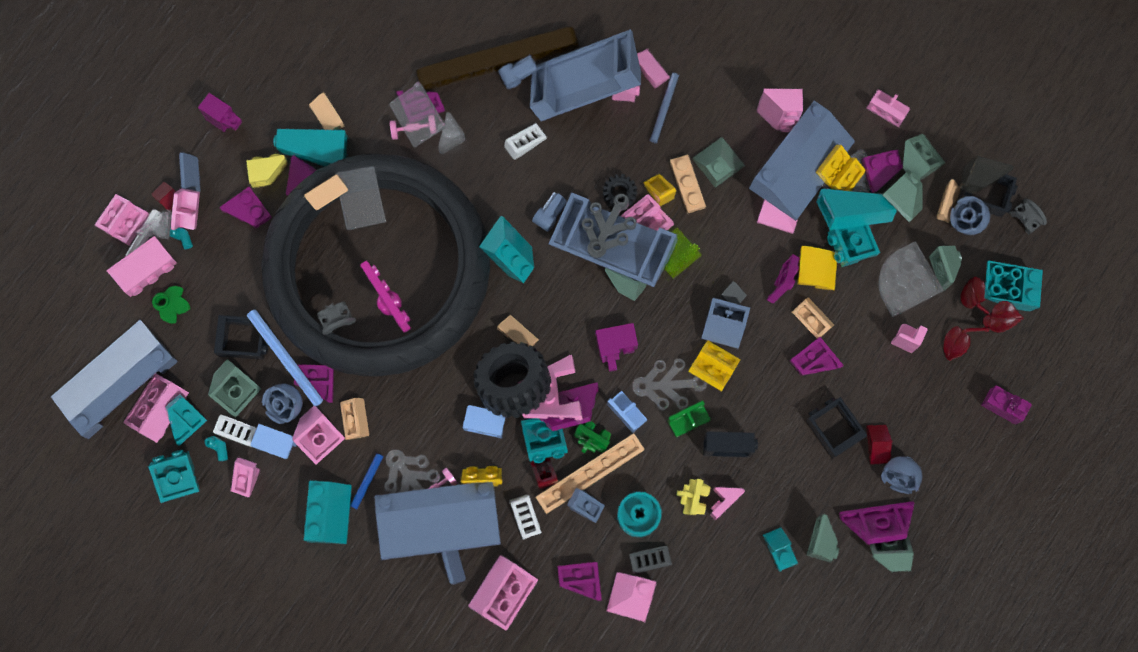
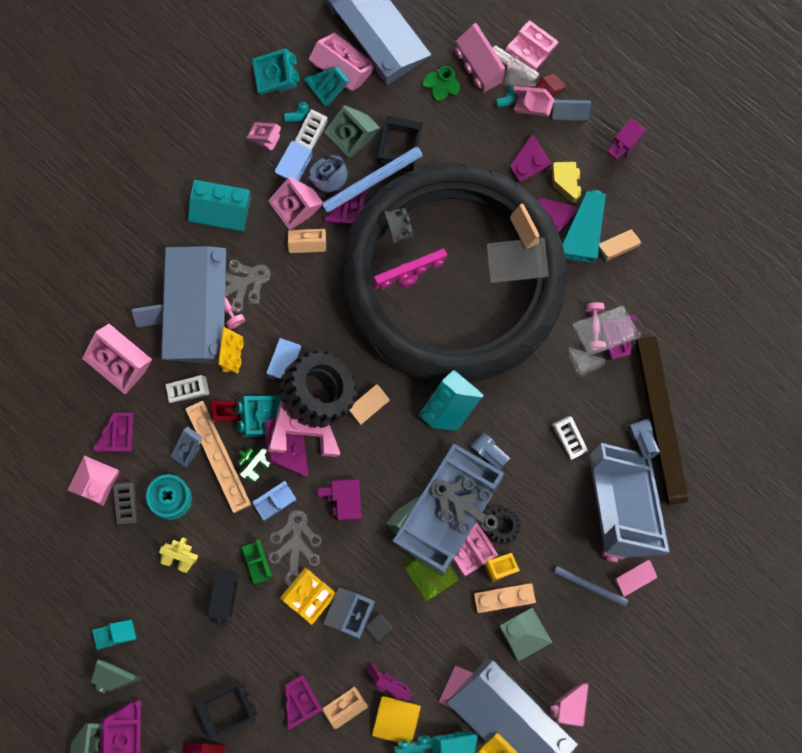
camera: 95 degrees right, 0 degrees up
(366, 481) = (244, 245): blue bar -> none
(729, 496) = (173, 590): bright pink slope -> none

